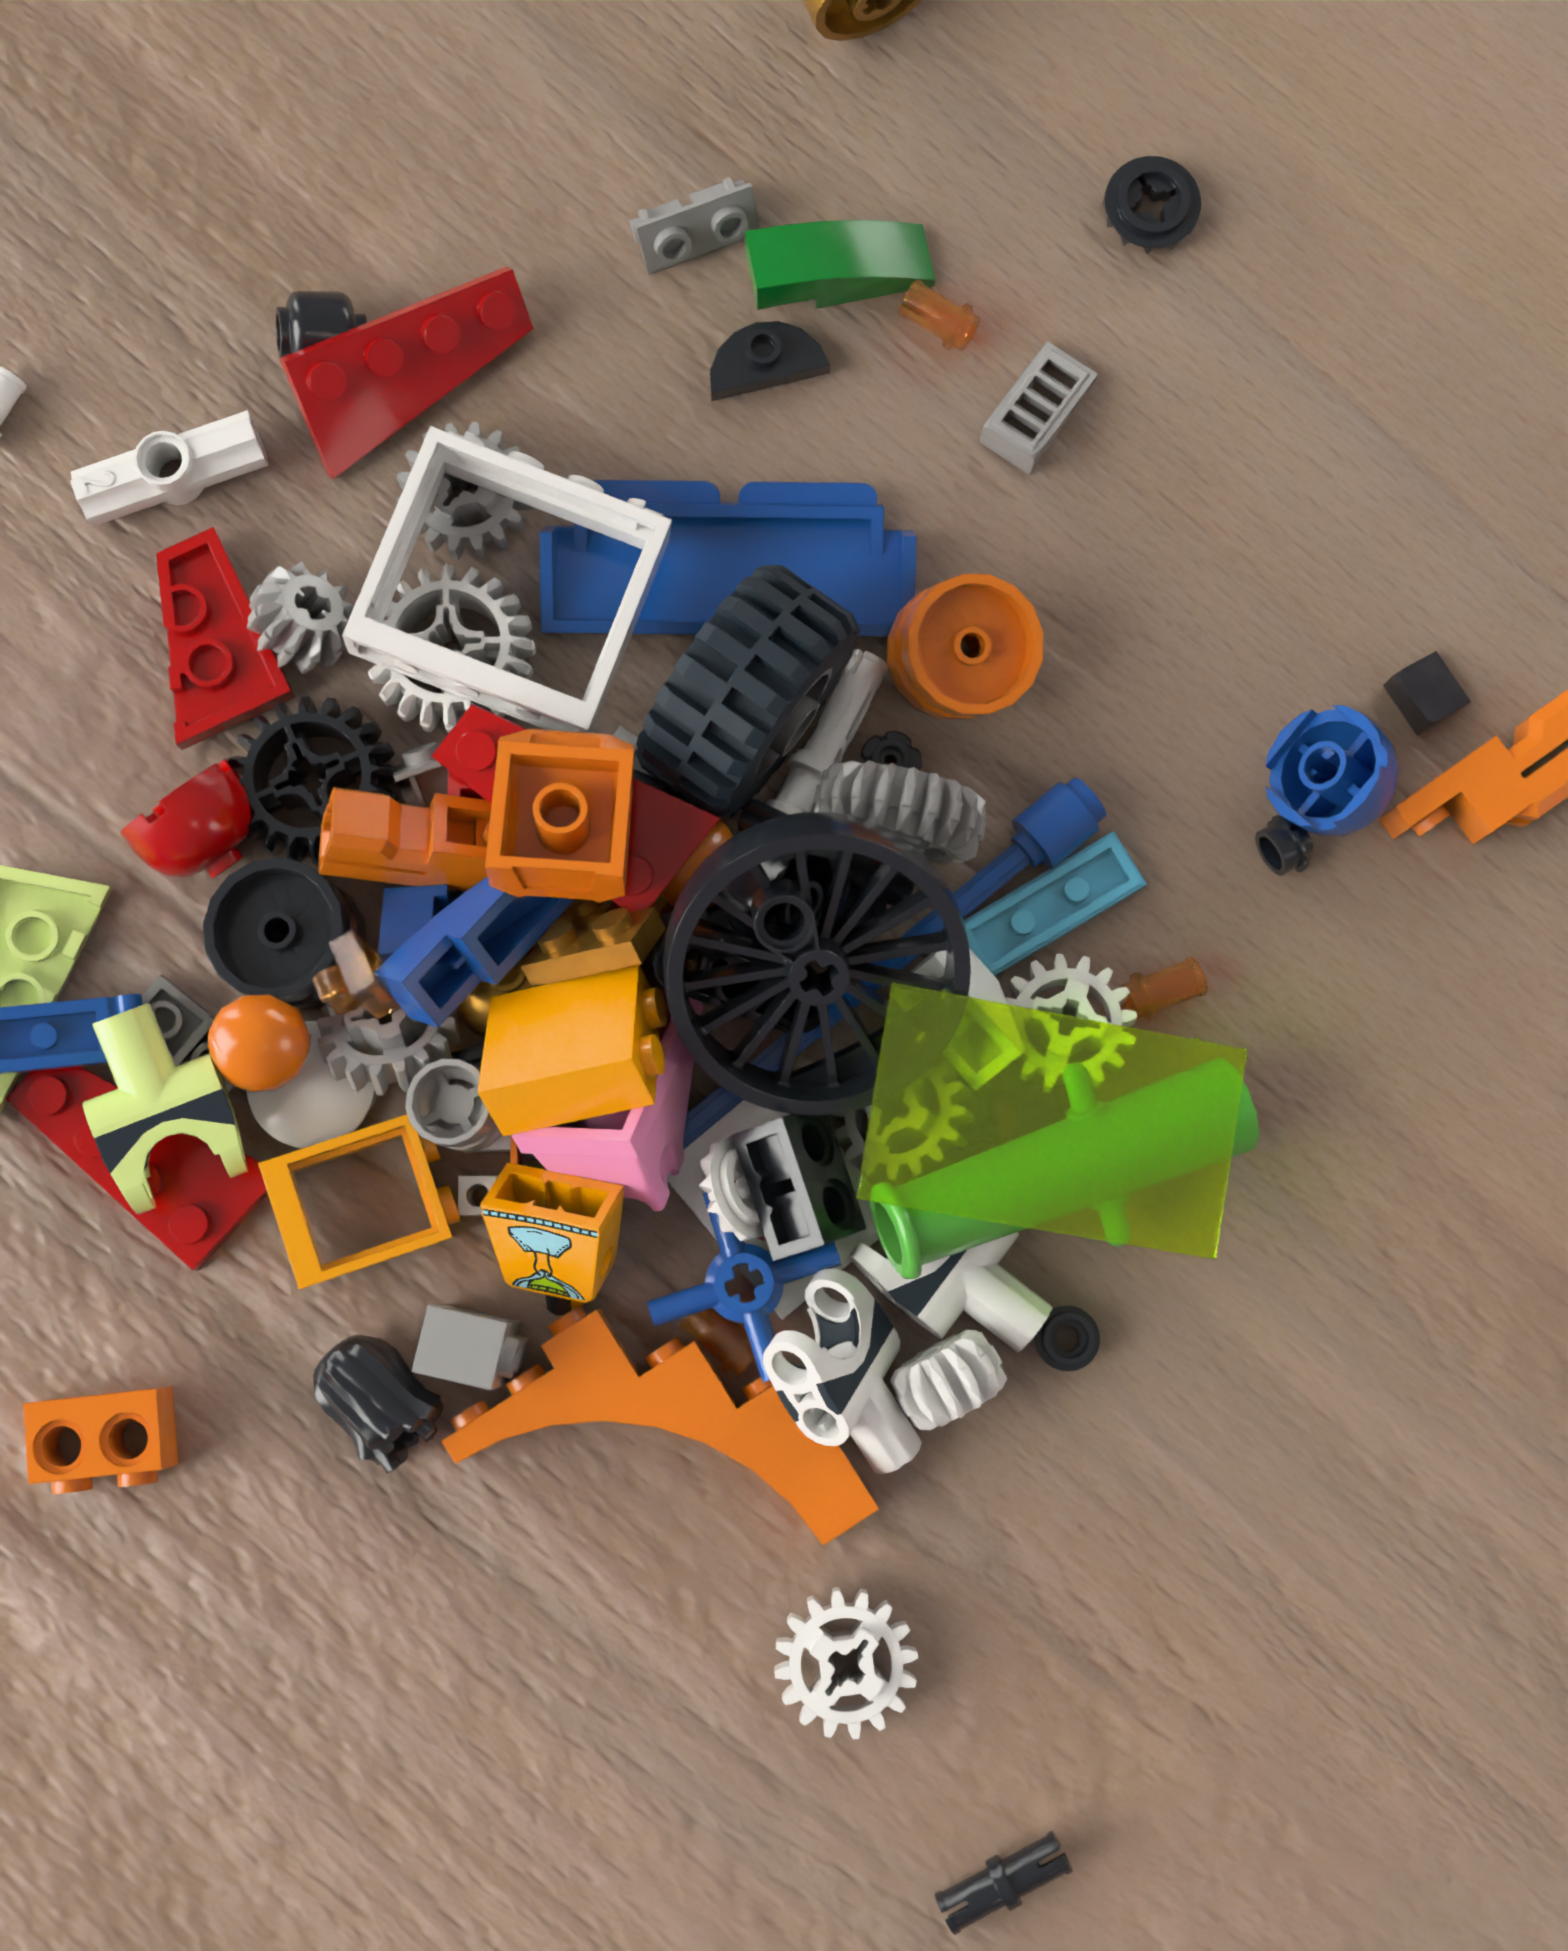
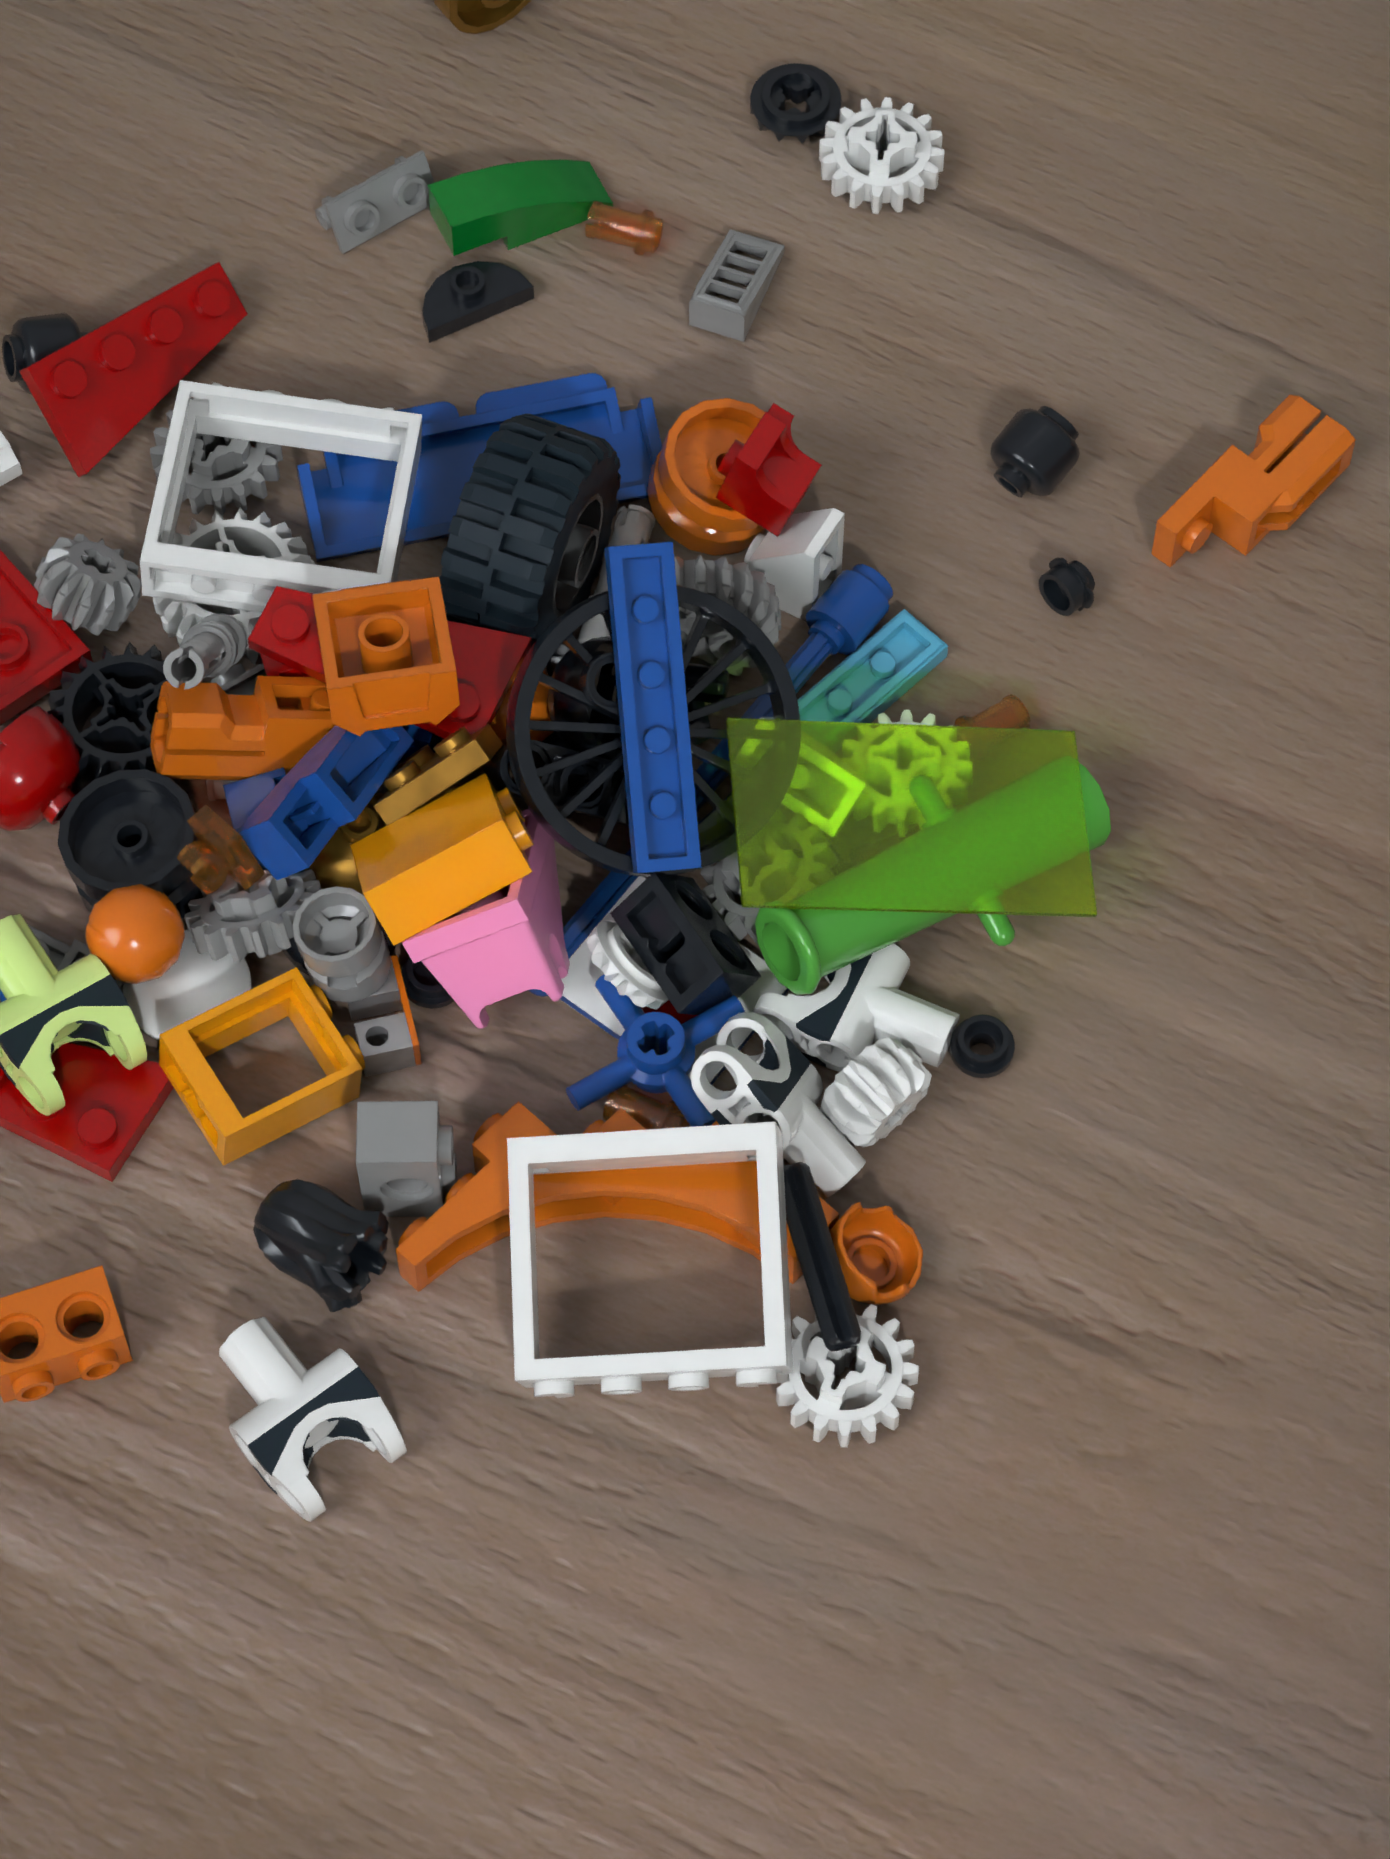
camera: 10 degrees left, 20 degrees down
(318, 1571) = (301, 1411): none -> white connector
(394, 744) = (206, 651): none -> light grey pin
(553, 1233) = (463, 1041): light orange torso -> none
(704, 1426) = (643, 1149): none -> white window
(816, 961) = (652, 707): none -> blue plate
(844, 1560) = (819, 1260): none -> black axle
(903, 1549) = (877, 1254): none -> orange hair
(1003, 1882) = (1056, 1540): black pin -> none
(1008, 677) = (767, 473): none -> red brick
(1016, 759) = (801, 559): none -> white slope
(1254, 297) = (853, 151): none -> white gear
(1291, 682) = (1035, 452): none -> black head
(1332, 771) = (1091, 506): blue cylinder -> none
(1426, 692) = (1161, 438): black slope -> none

